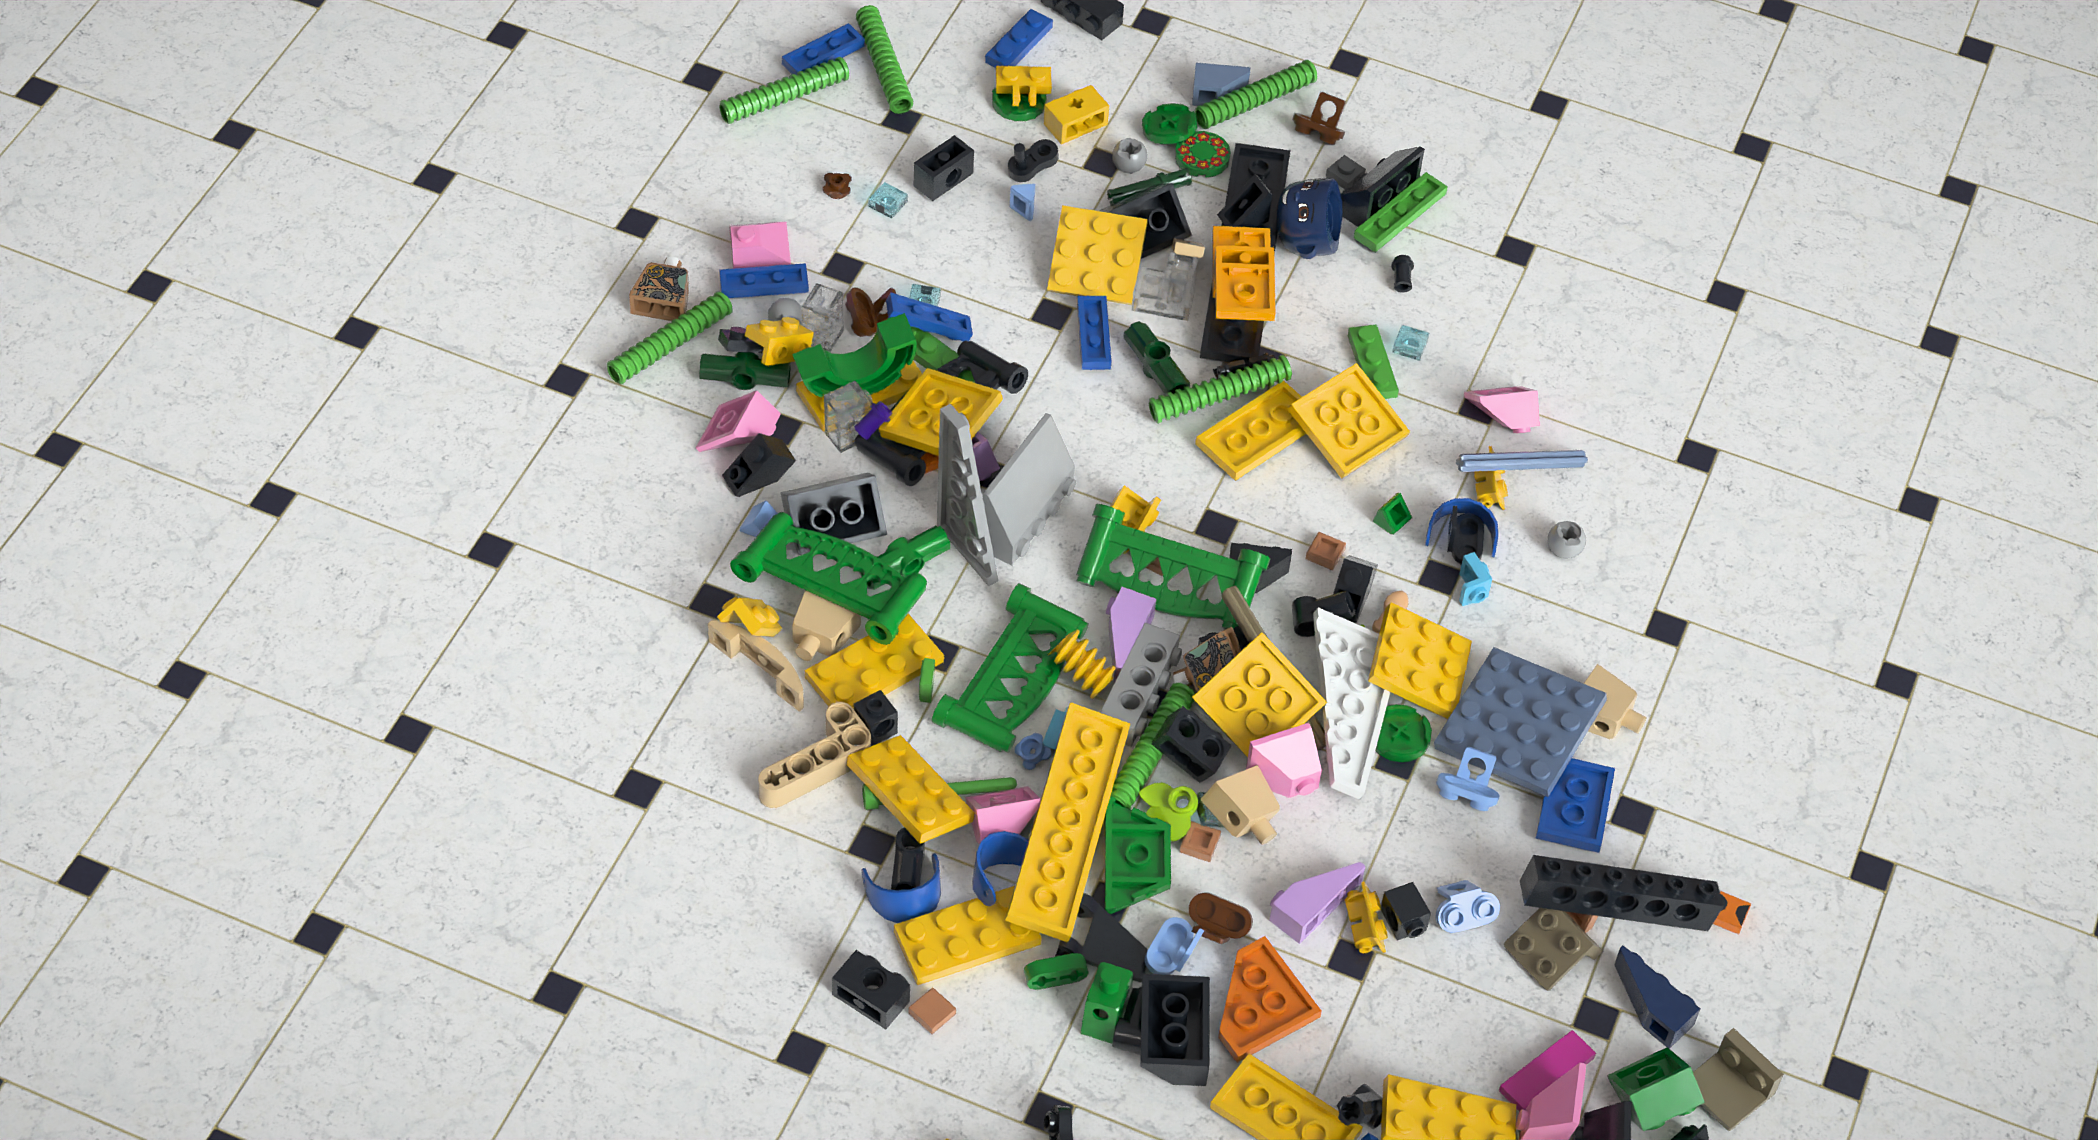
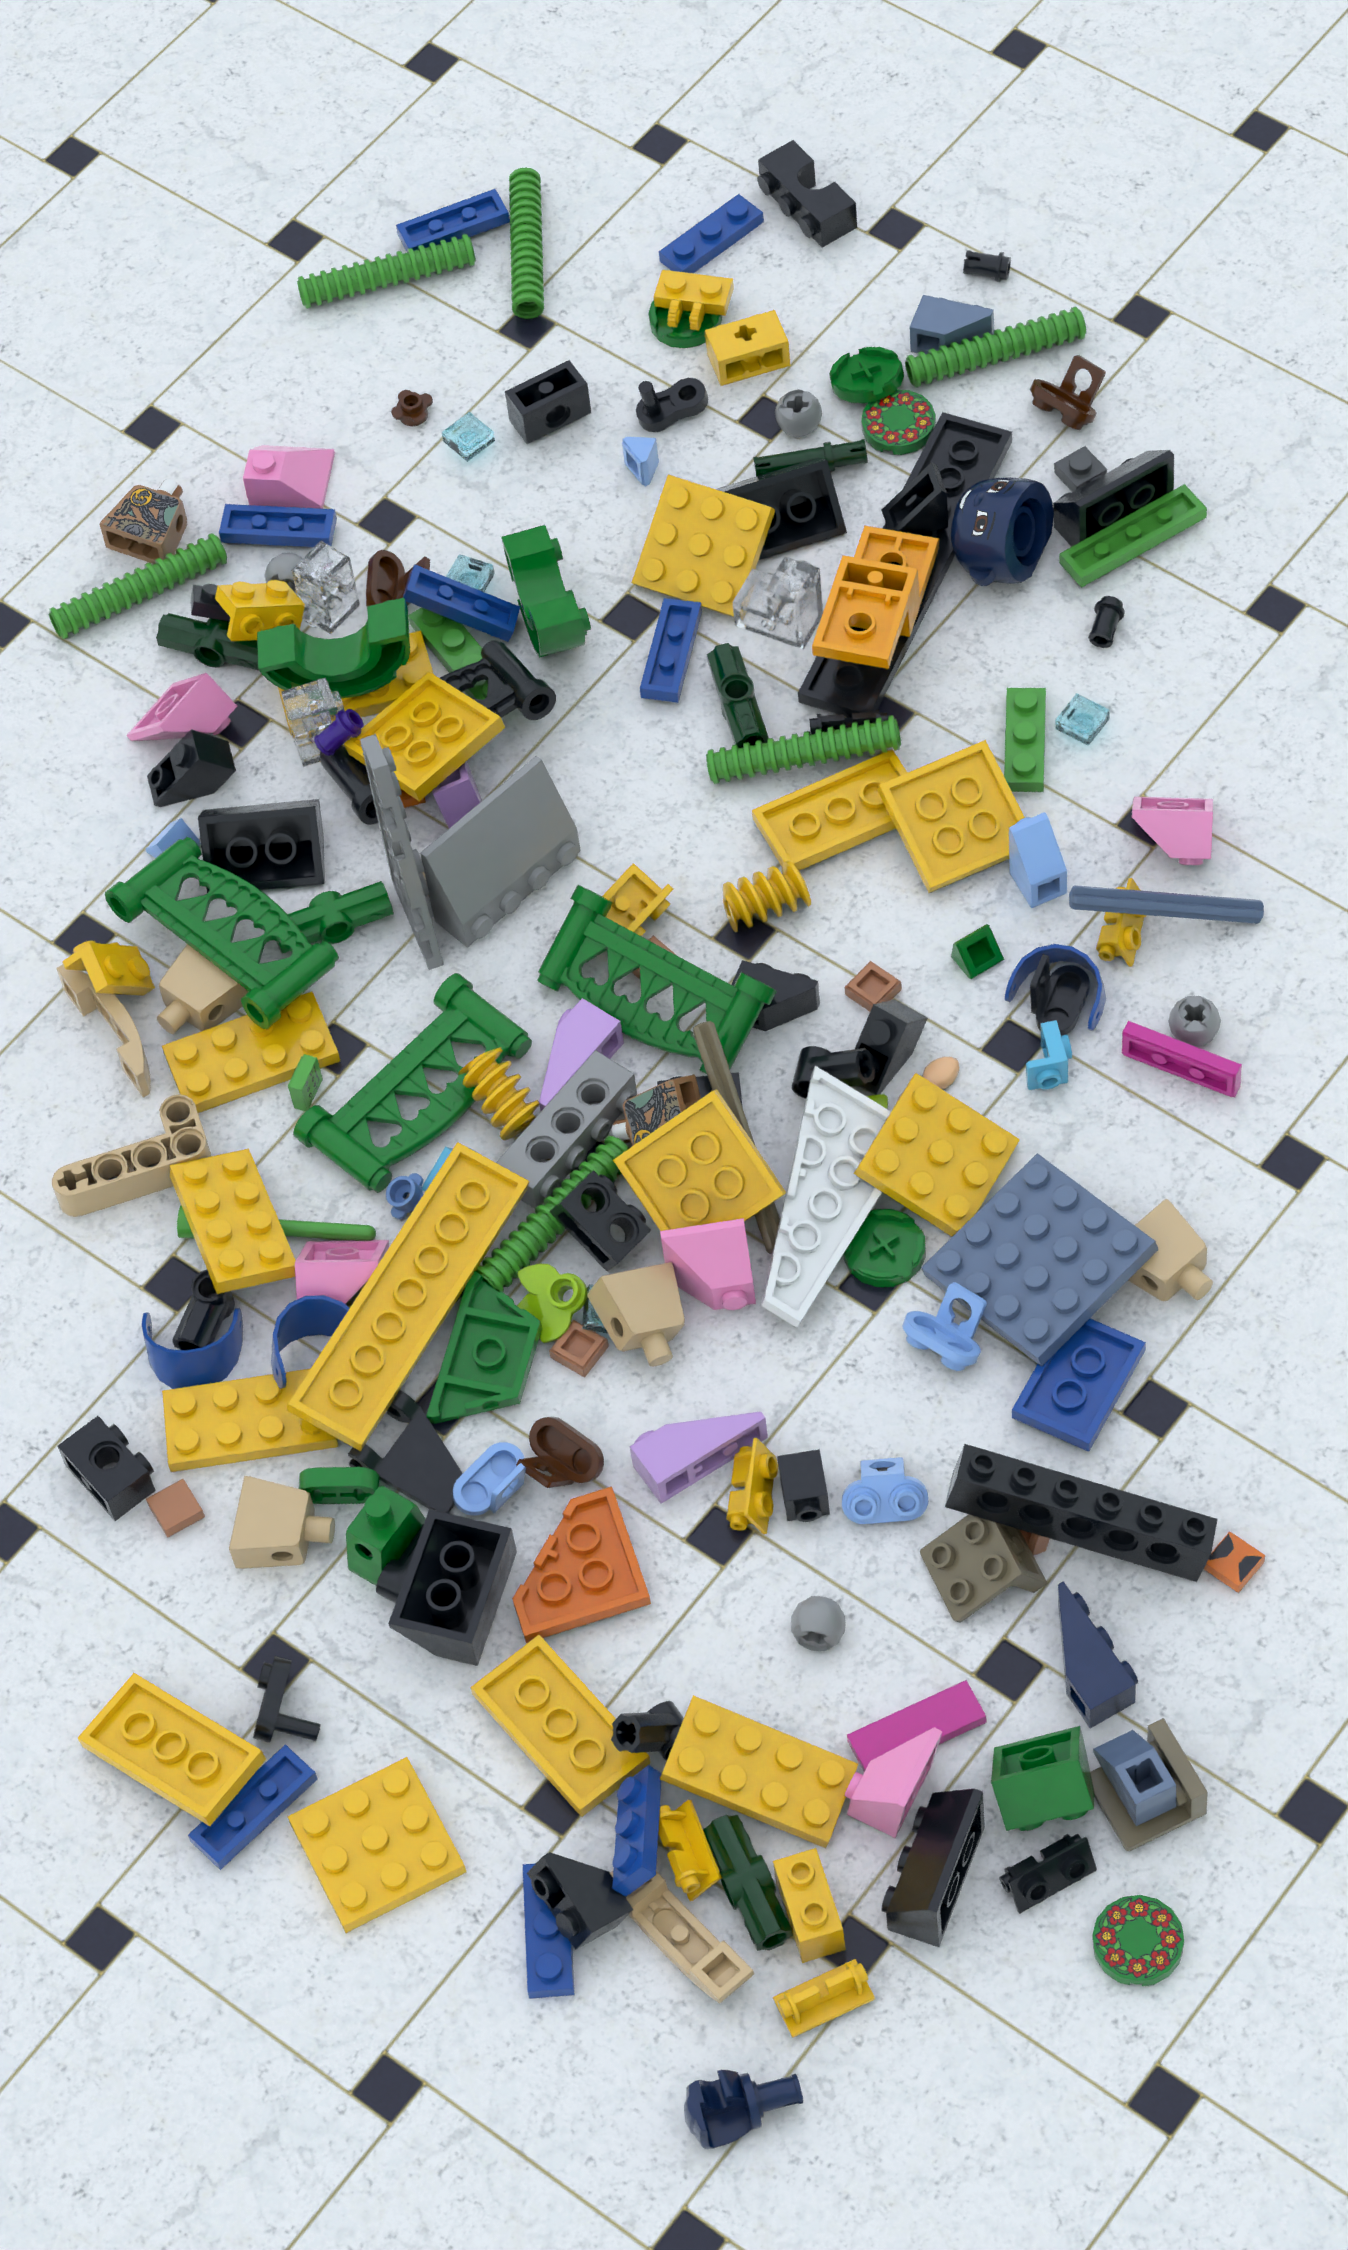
camera: 25 degrees right, 5 degrees up
(878, 716) = (224, 1122): black brick -> none
(991, 314) = (545, 605): none -> green brick
(1018, 1008) = (275, 1525): none -> tan torso
(1188, 248) = (814, 552): tan tile -> none
(1227, 494) = (764, 894): none -> yellow piece
(1229, 39) = (987, 265): none -> black pin
(1418, 443) = (1036, 860): none -> light blue slope
(1452, 1008) = (818, 1623): none -> light grey piece
(1567, 567) = (1181, 1059): none -> dark pink tile
(1726, 1072) = (1137, 1776): none -> sand blue slope

